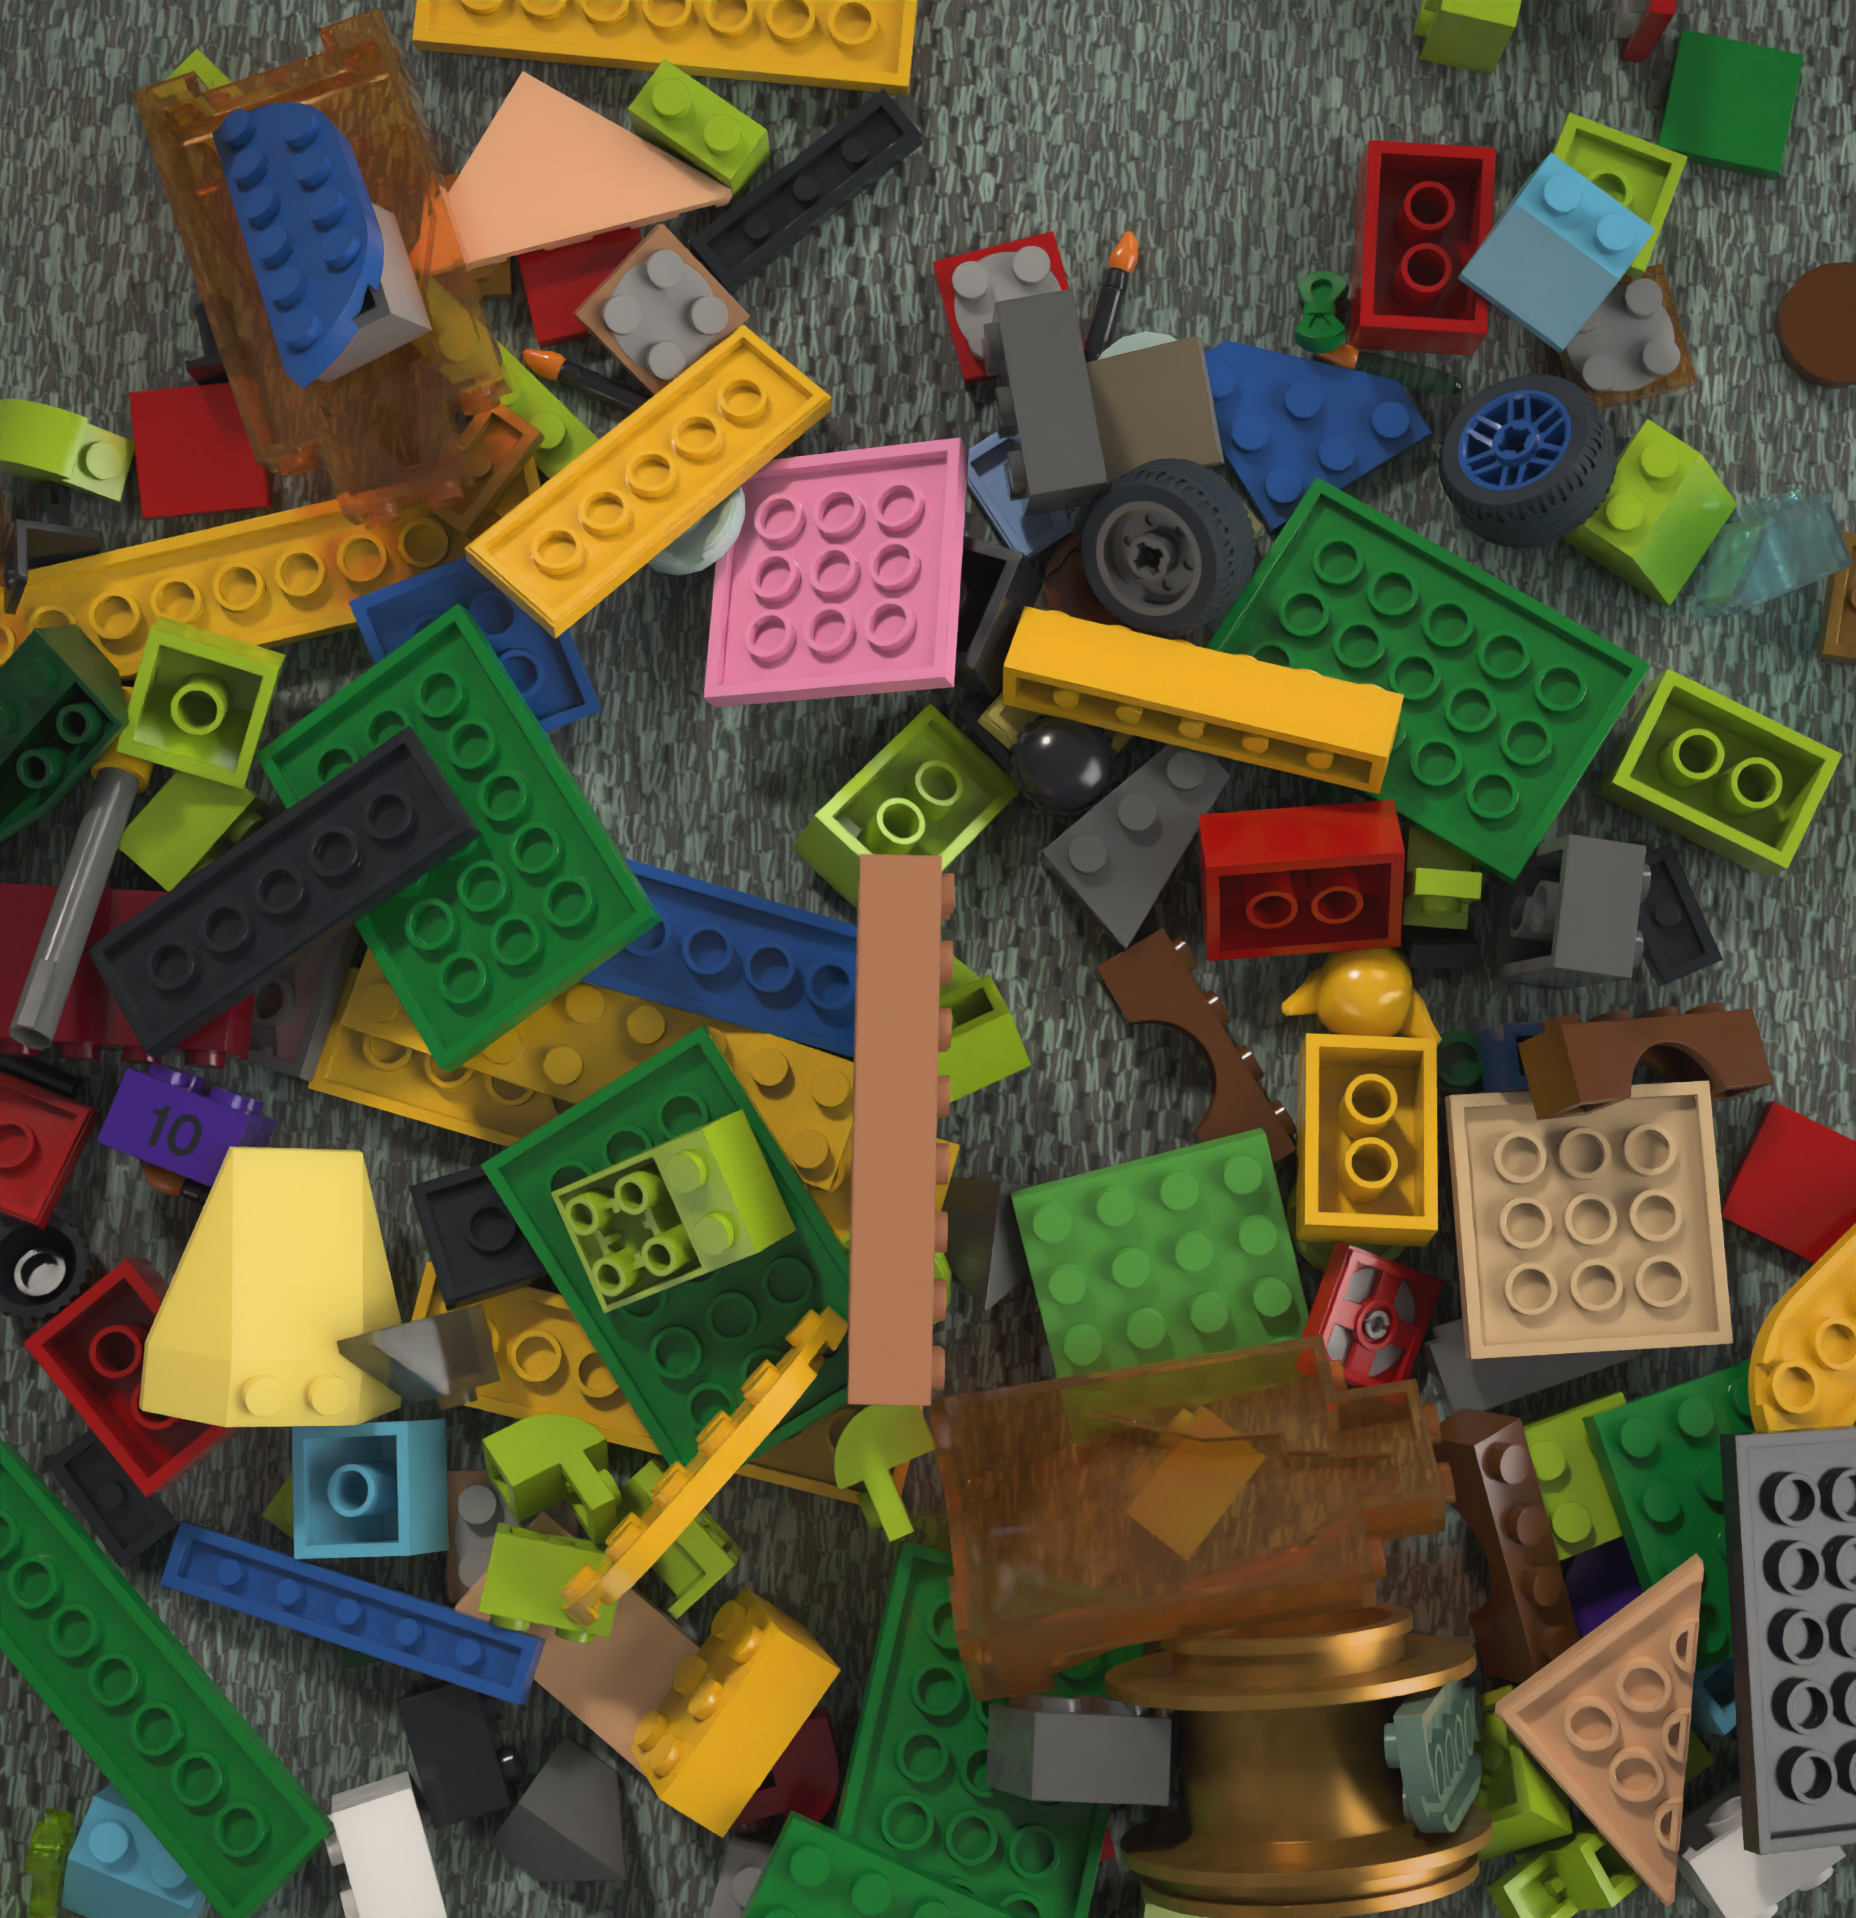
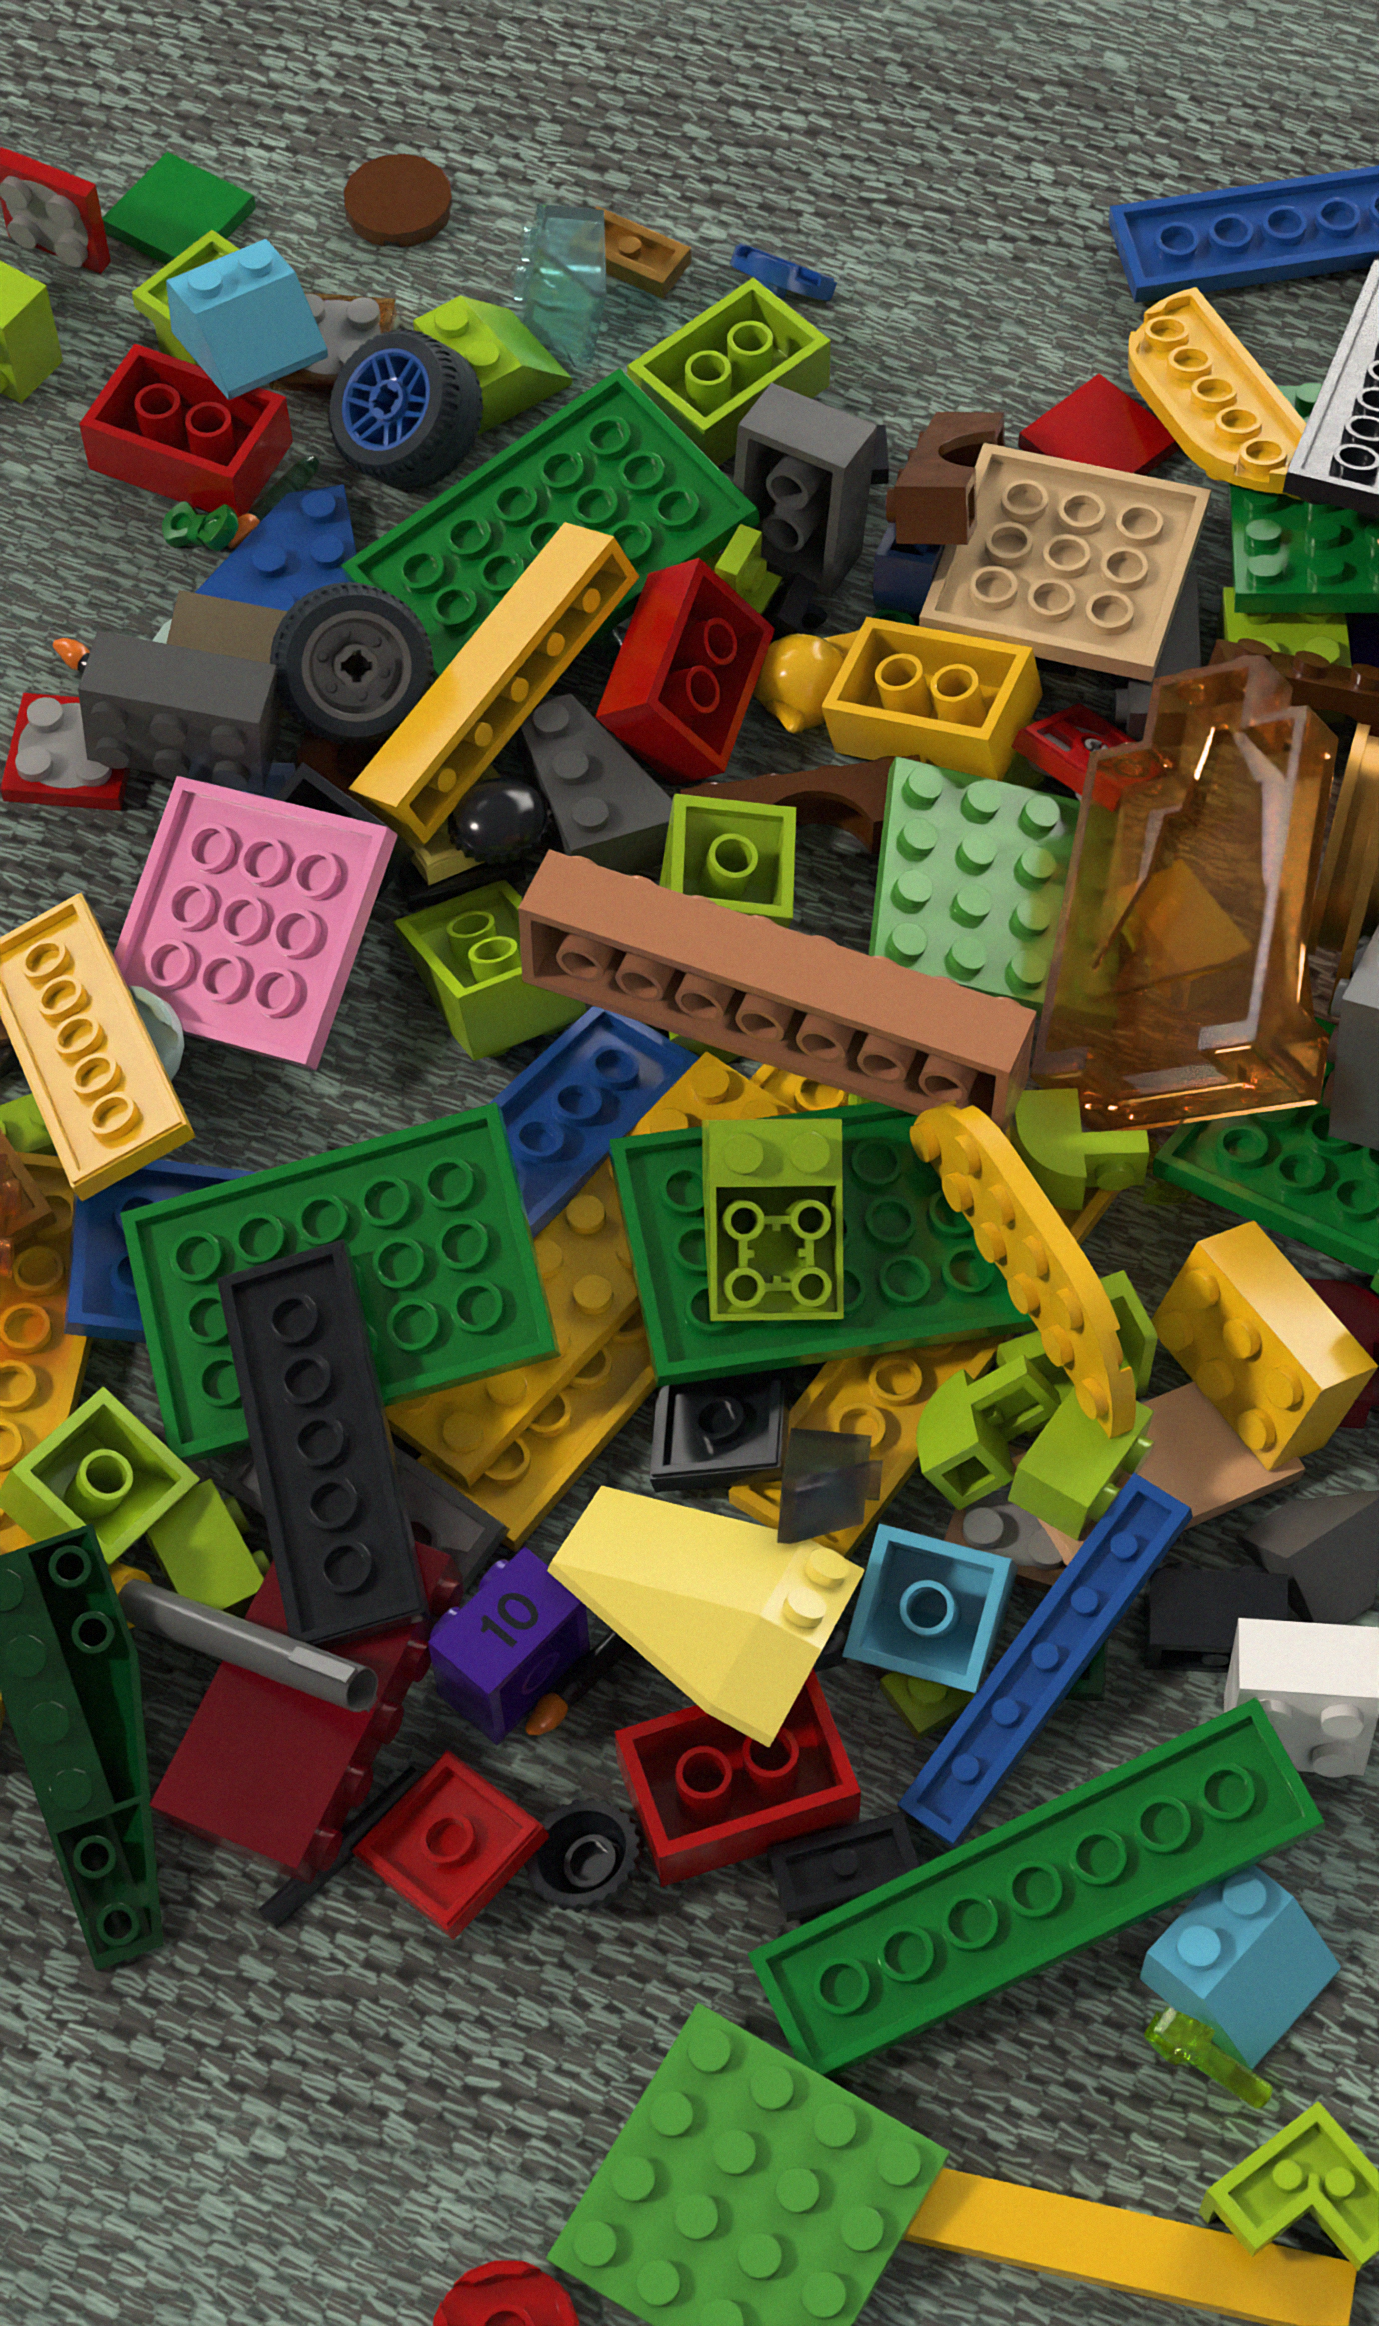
camera: 65 degrees left, 25 degrees down
(1080, 1013) = (732, 854): none -> lime slope

